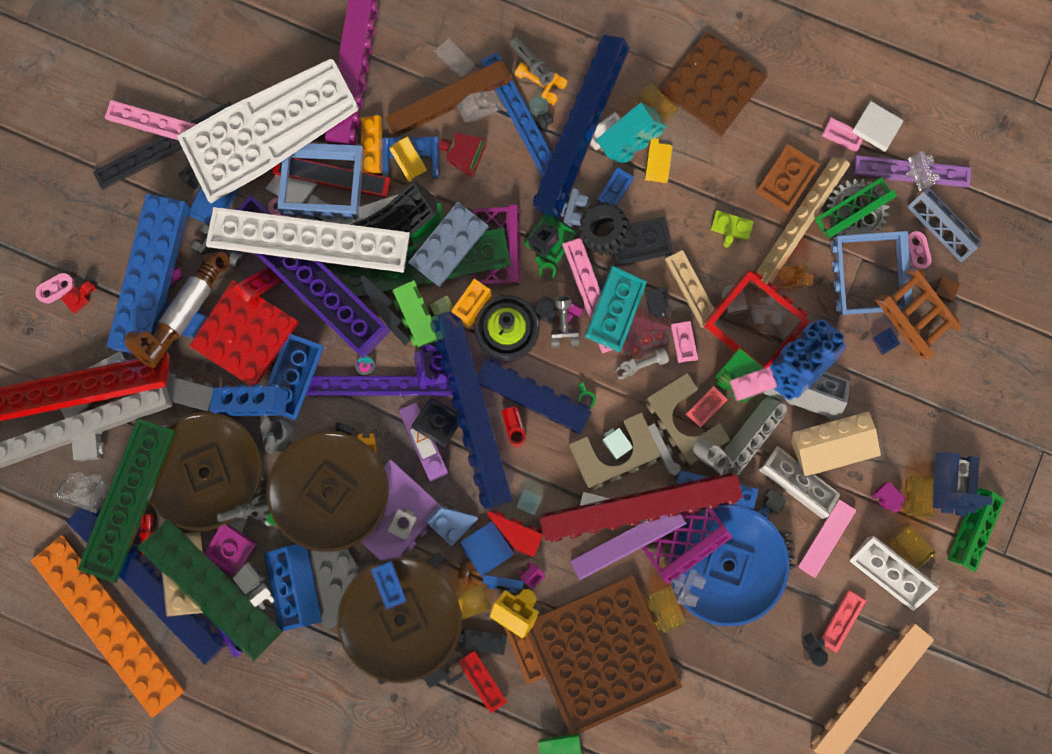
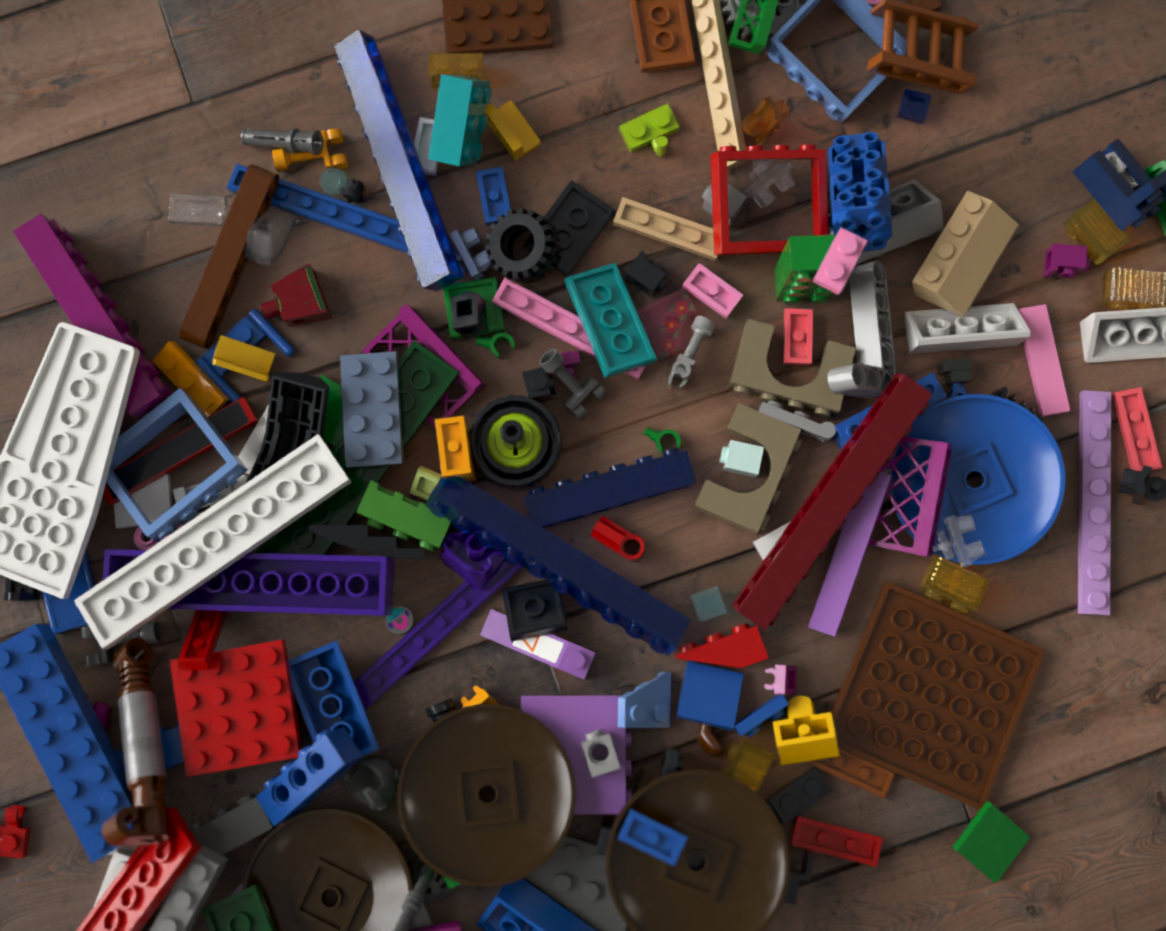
camera: 40 degrees left, 0 degrees up
(783, 636) = (1094, 503): none -> lavender plate

